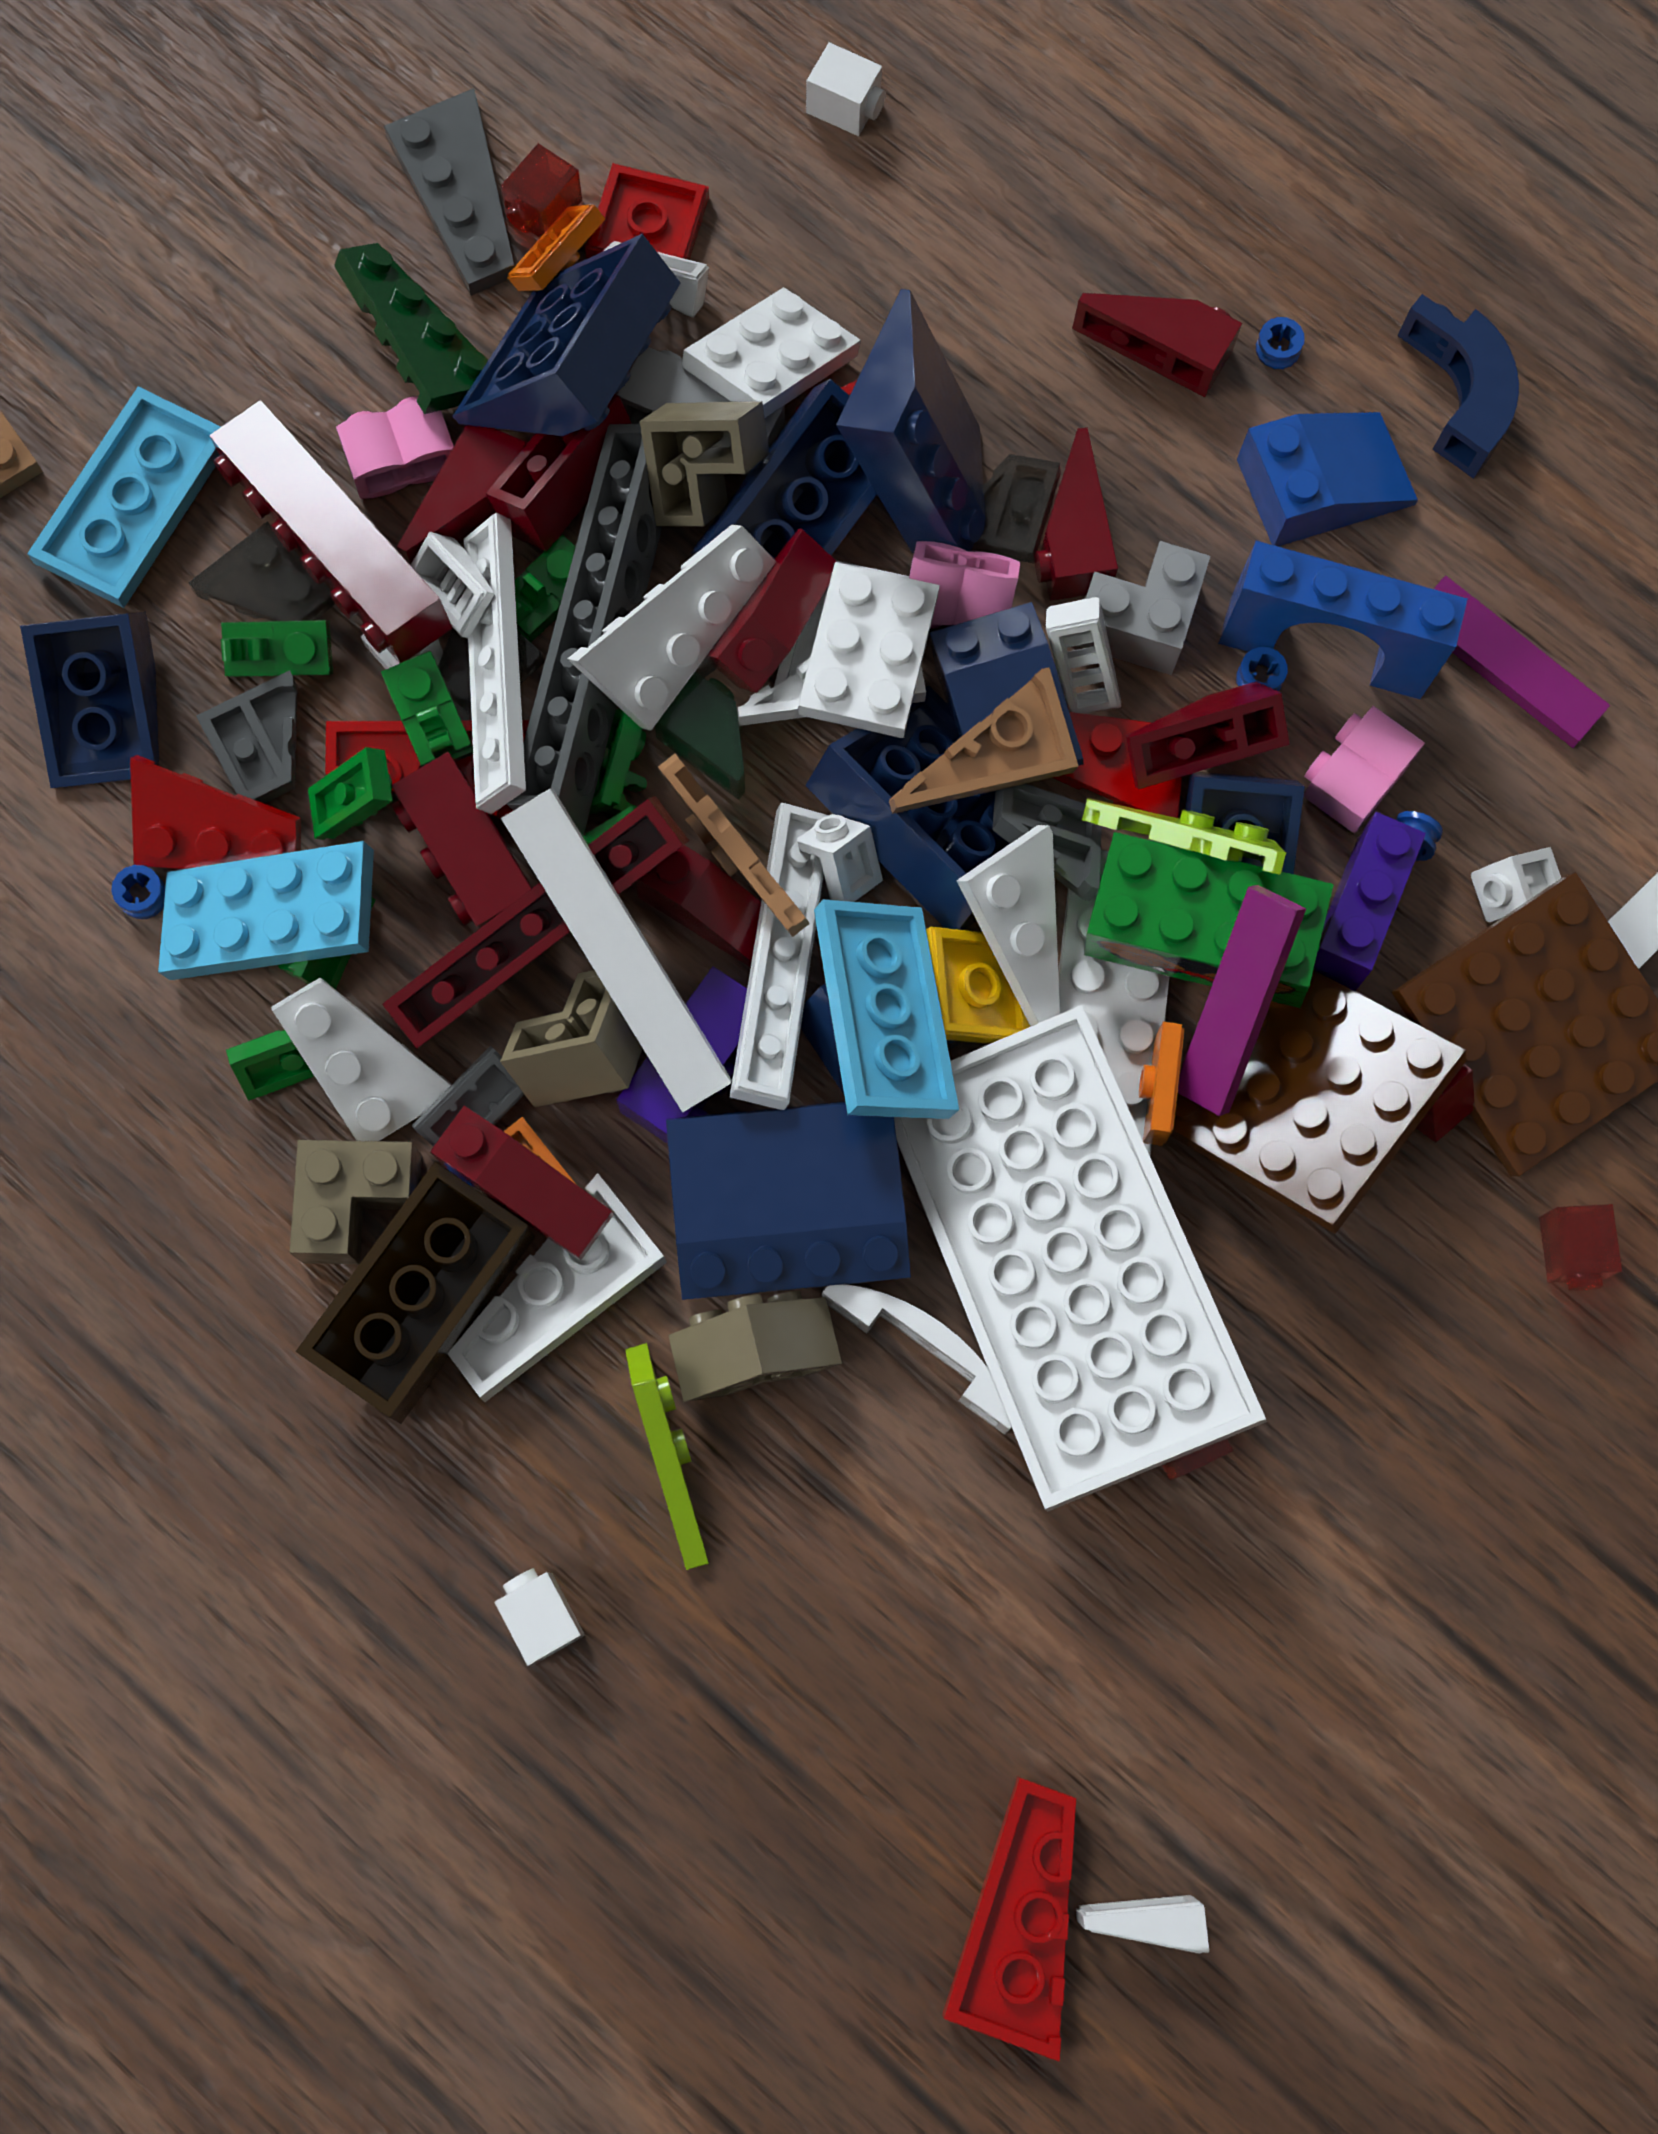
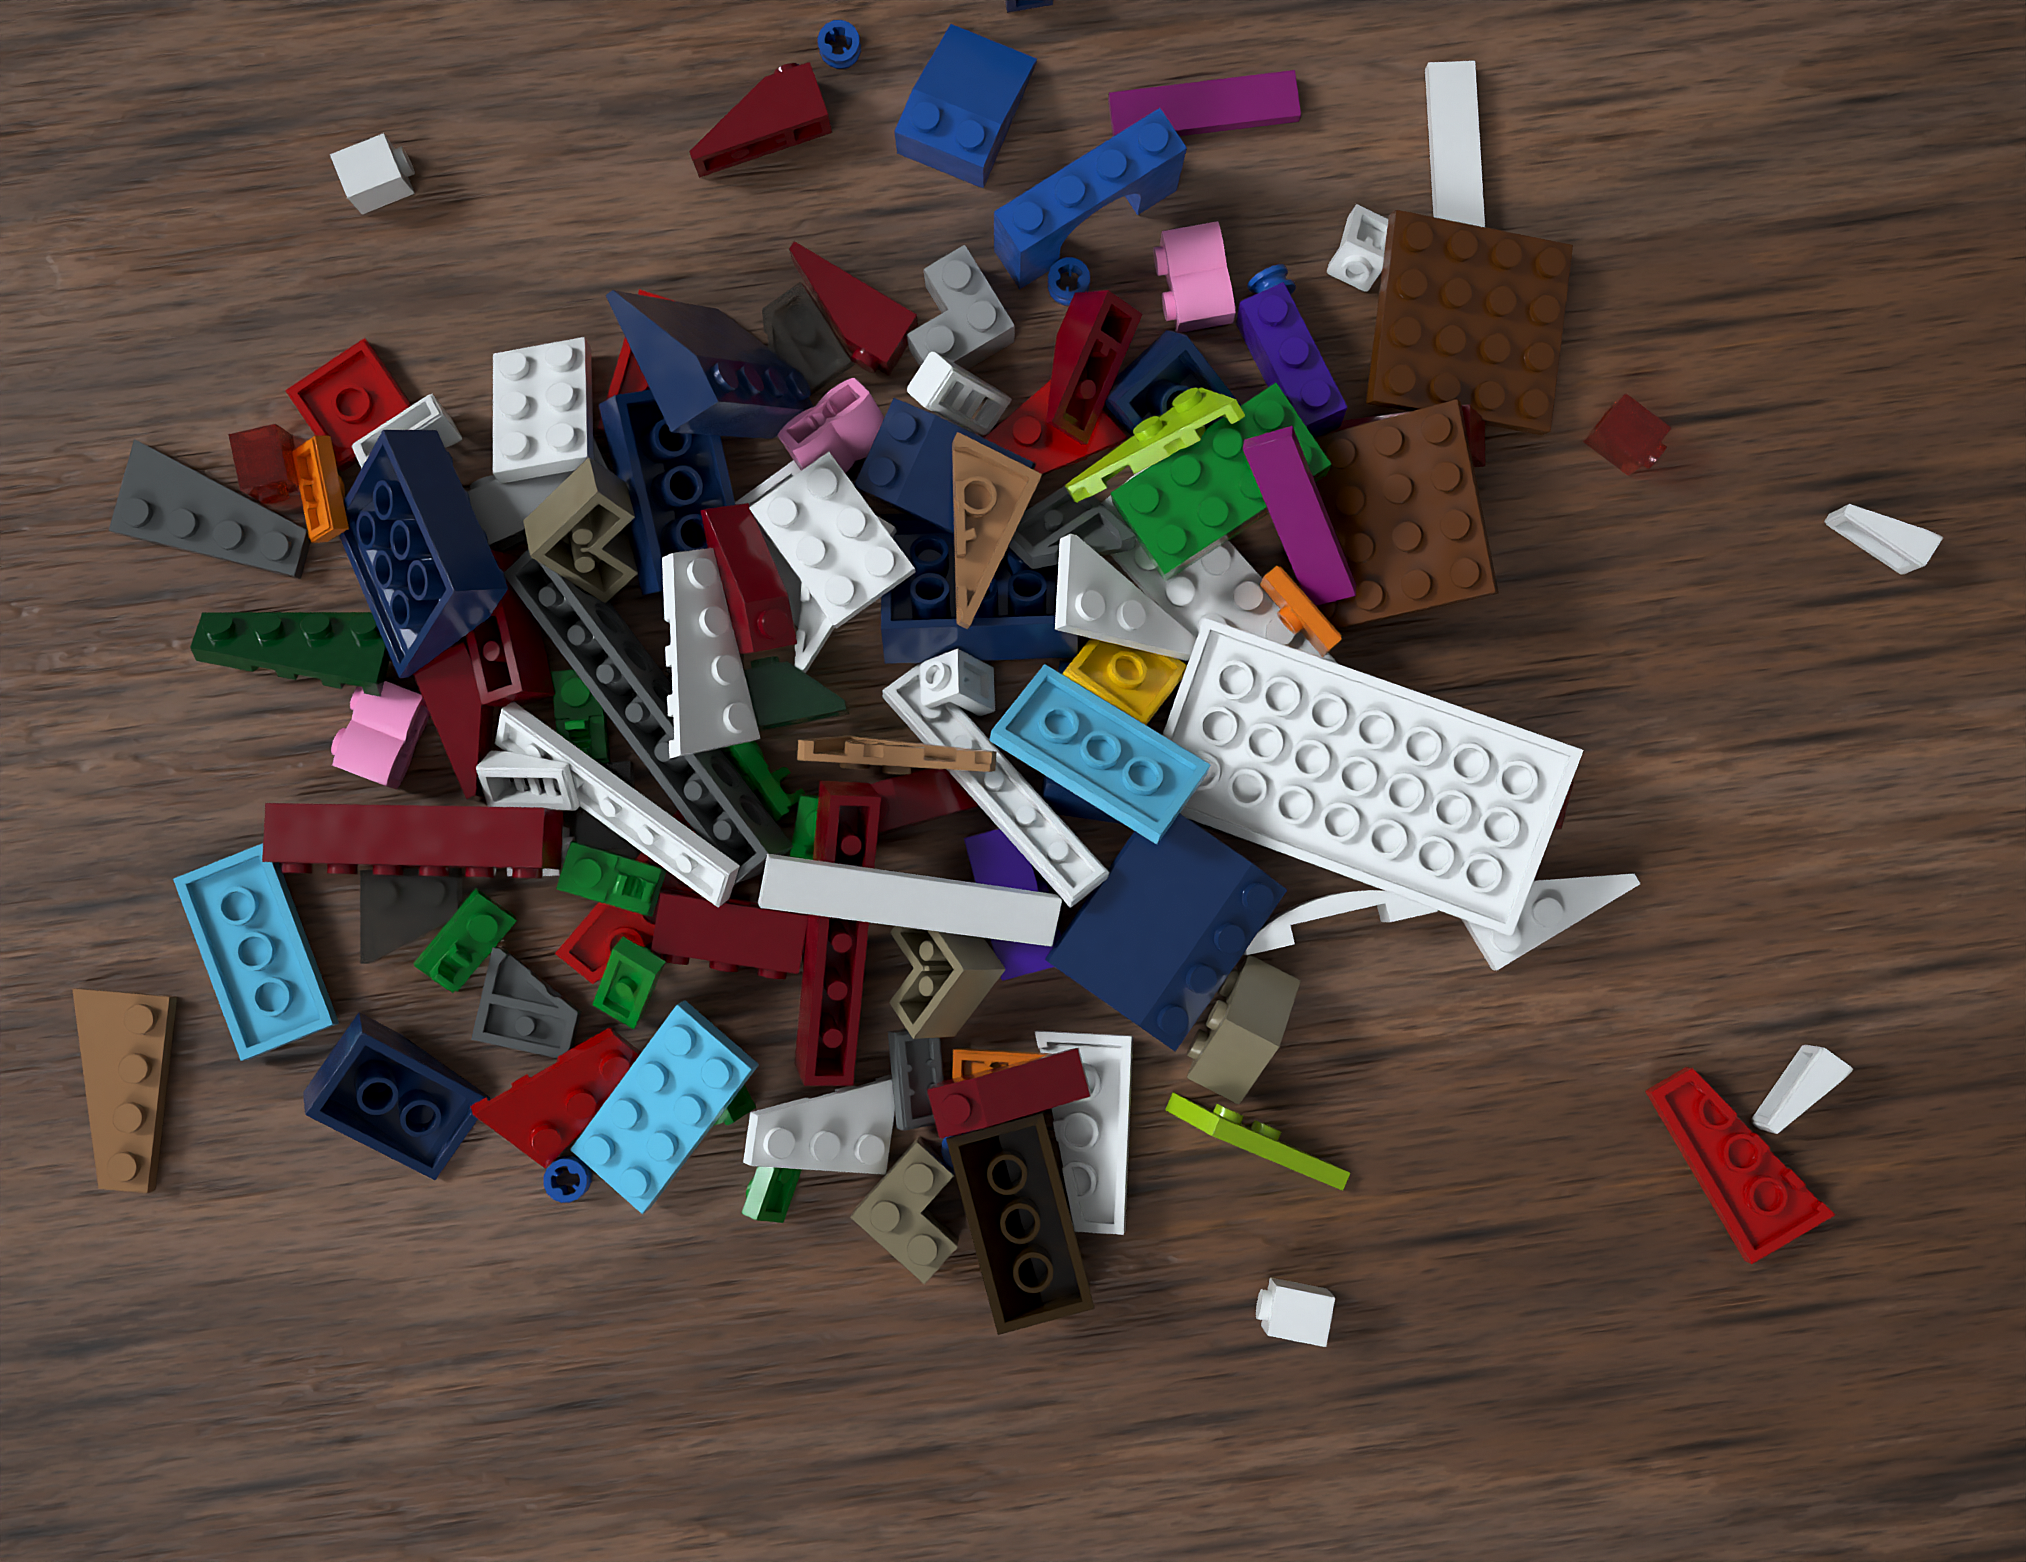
camera: 50 degrees left, 10 degrees up
(1100, 1537) = (1548, 911): none -> white wing

